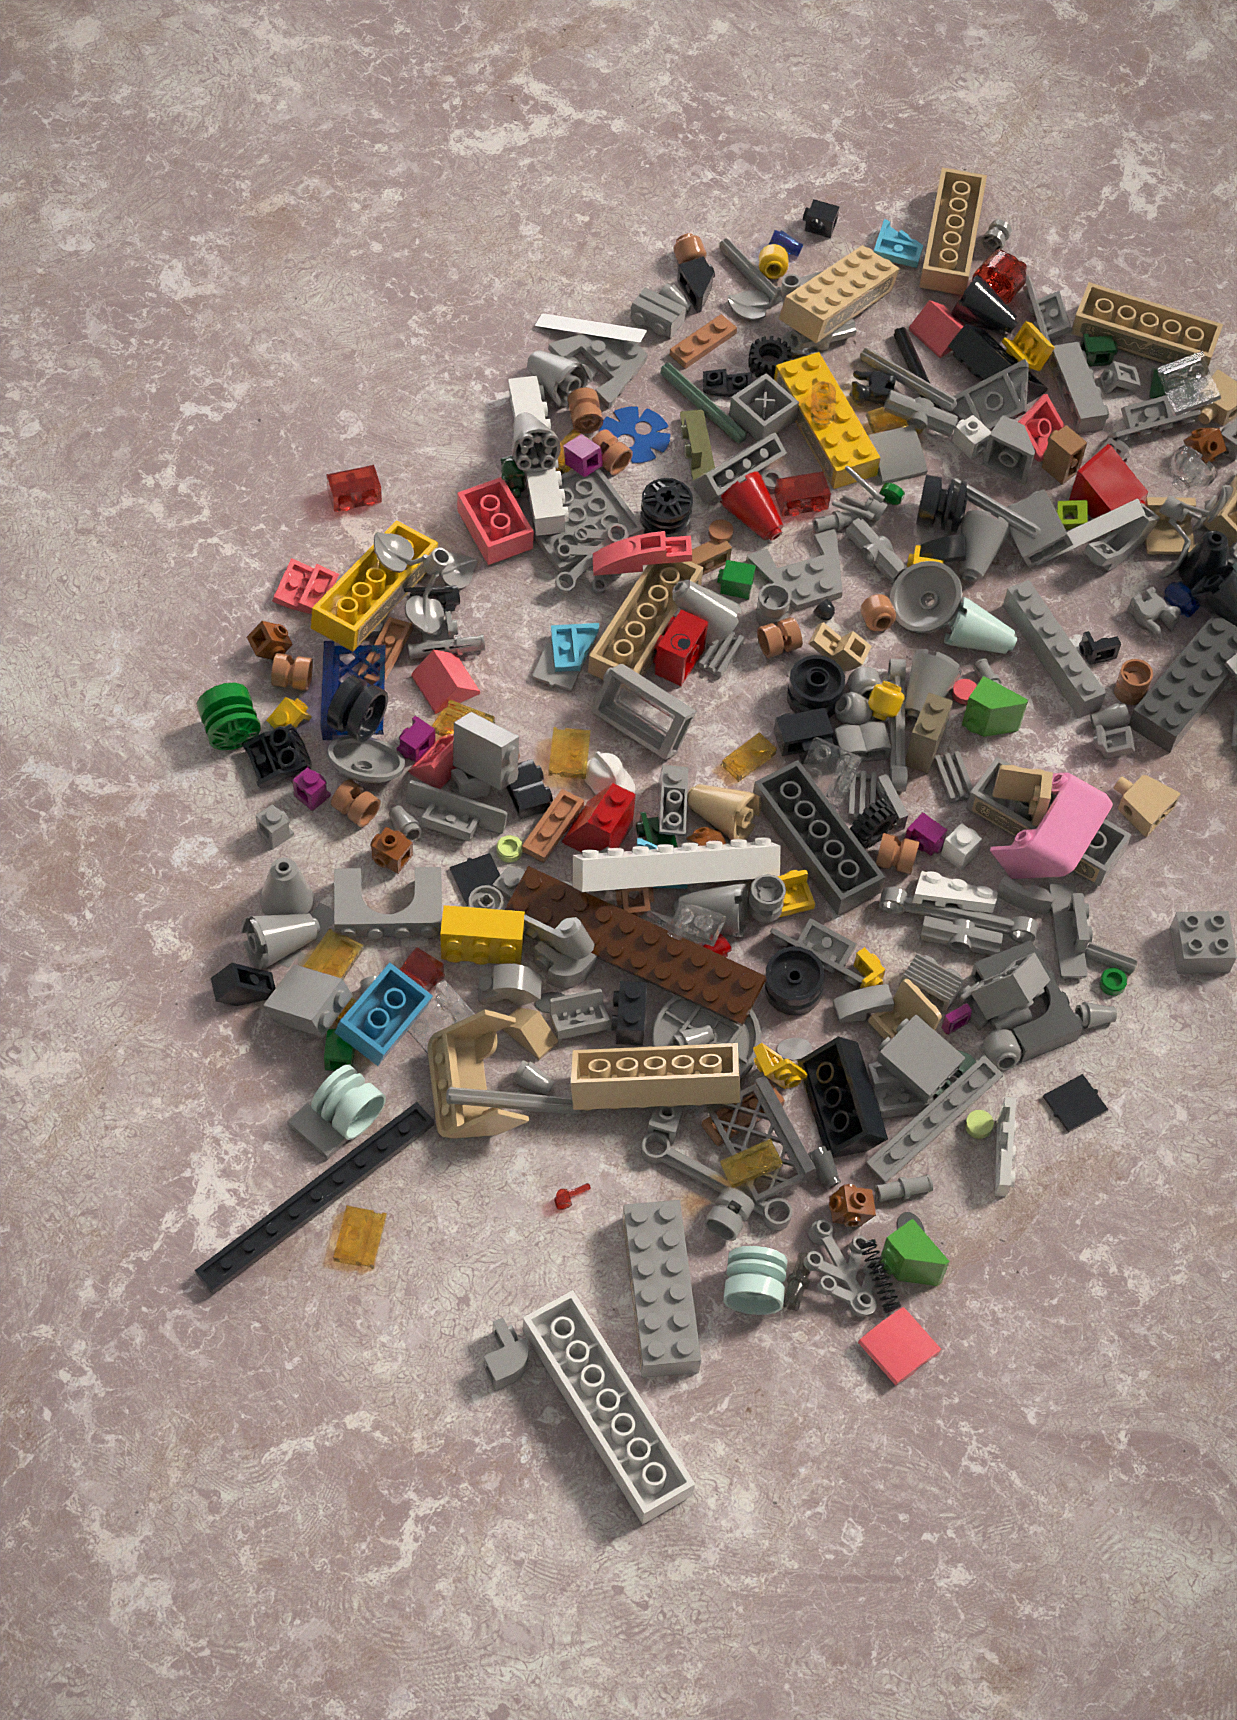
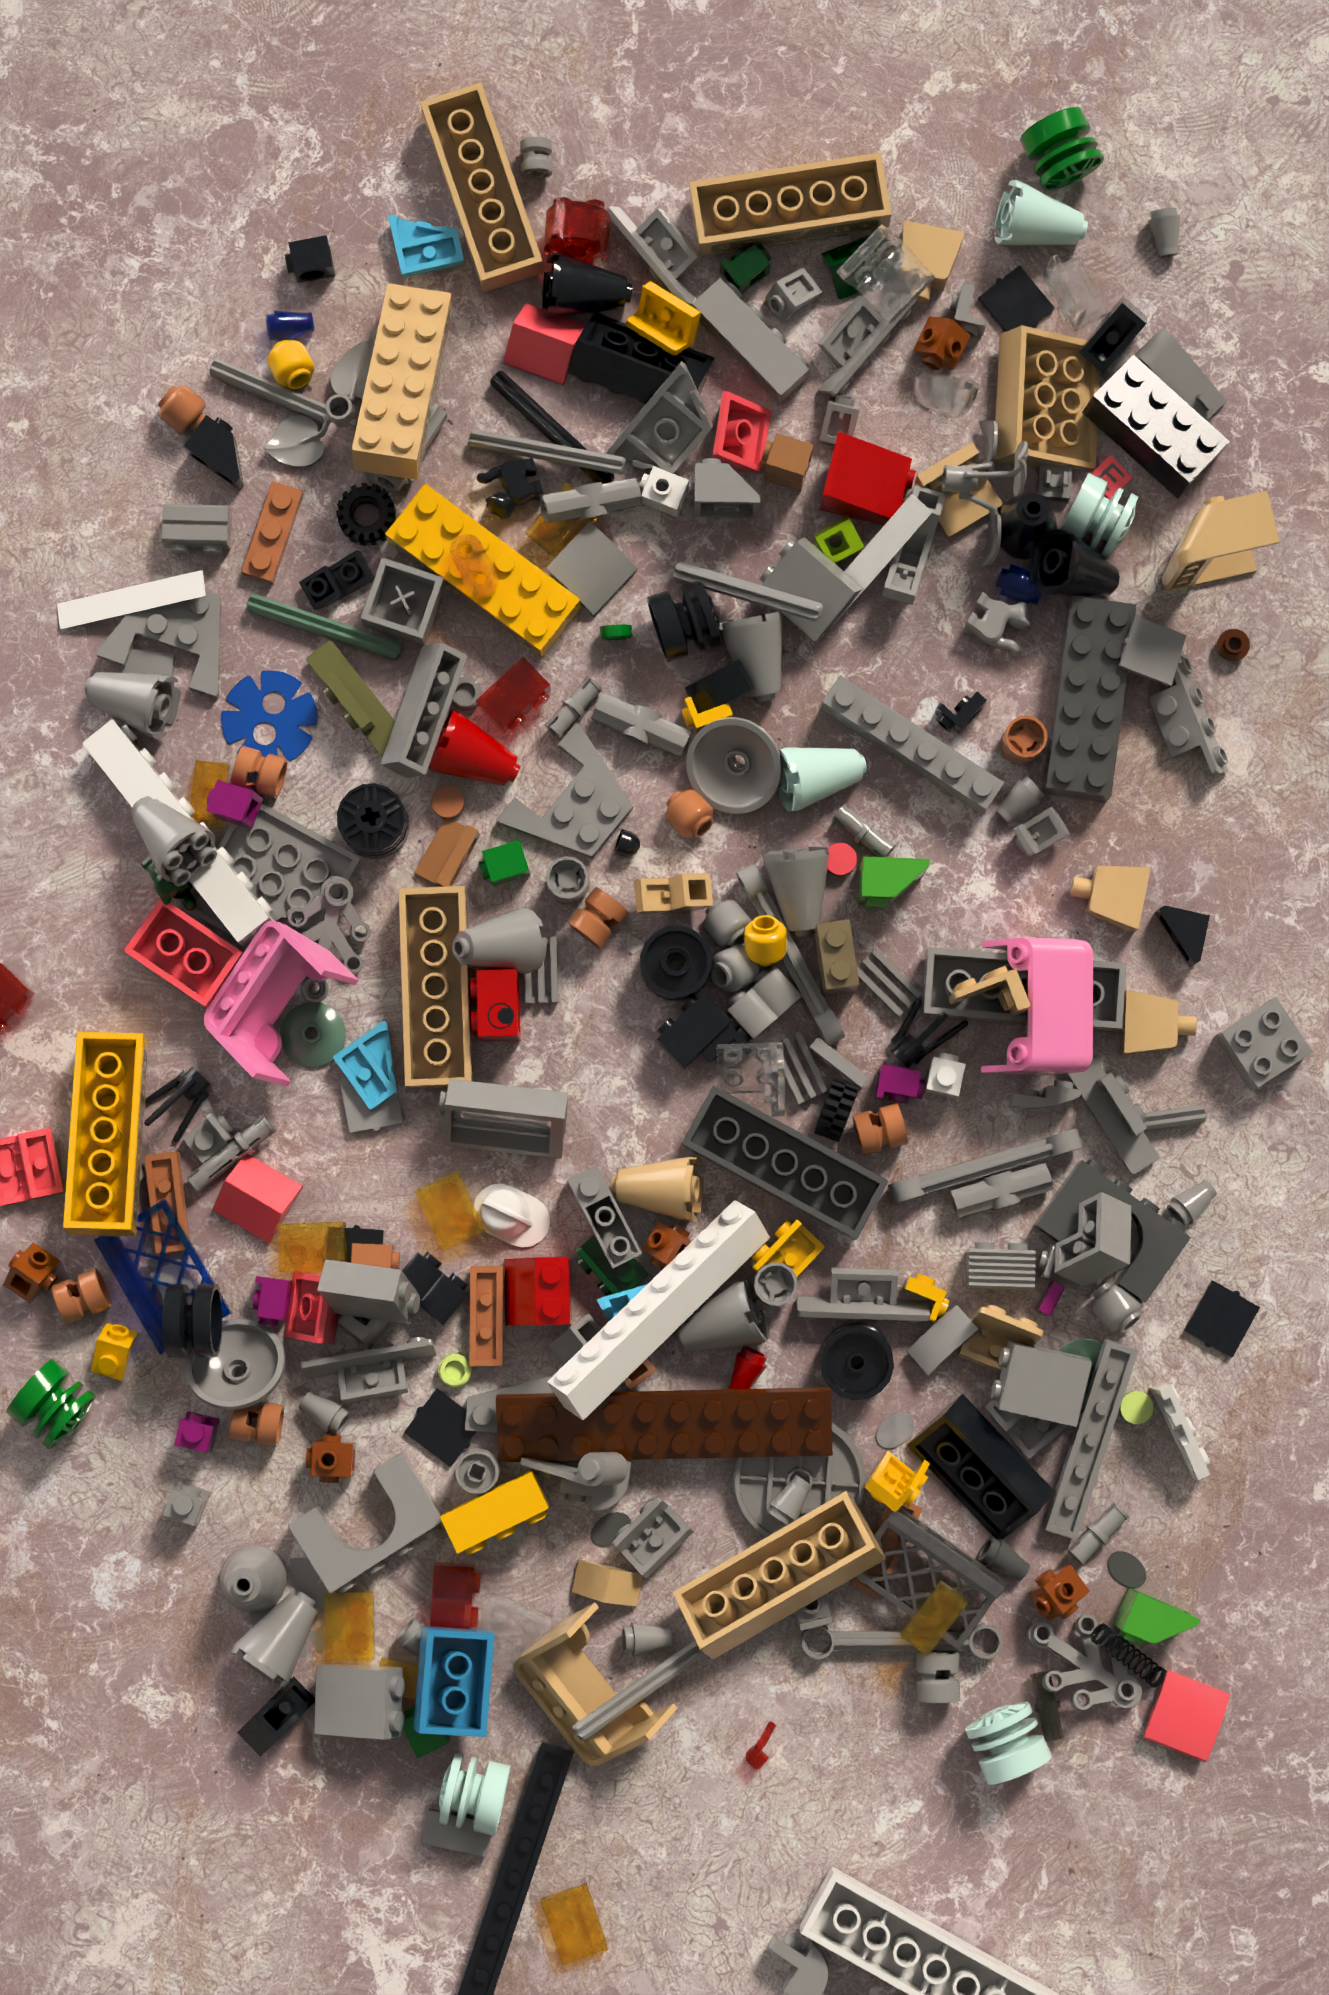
camera: 25 degrees left, 25 degrees up
(277, 755) = (134, 1411): black slope -> none
(455, 569) = (180, 1045): light grey plant -> none
(511, 982) = (559, 1547): light grey brick -> none
(535, 560) = (260, 989): none -> bright pink windscreen
(540, 620) = (328, 1042): none -> sand green dish
(585, 410) = (196, 729): nougat wheel -> none
(630, 1019) = (704, 1501): black brick -> none
(640, 550) = (386, 912): coral slope -> none
(661, 1289) = (914, 1802): light grey brick -> none
(675, 295) = (204, 492): light grey cone -> none
(692, 922) = (708, 1375): clear bracket -> none
(749, 757) = (648, 1092): clear yellow plate -> none
(872, 509) = (605, 666): light grey plant -> none
(947, 816) = (910, 1049): none -> black plant
(957, 891) = (958, 1144): white wing -> none
(1113, 981) = (1189, 1145): green tile -> none
(1128, 891) = (1152, 1023): none -> tan torso
(1184, 847) = (1186, 931): none -> black slope

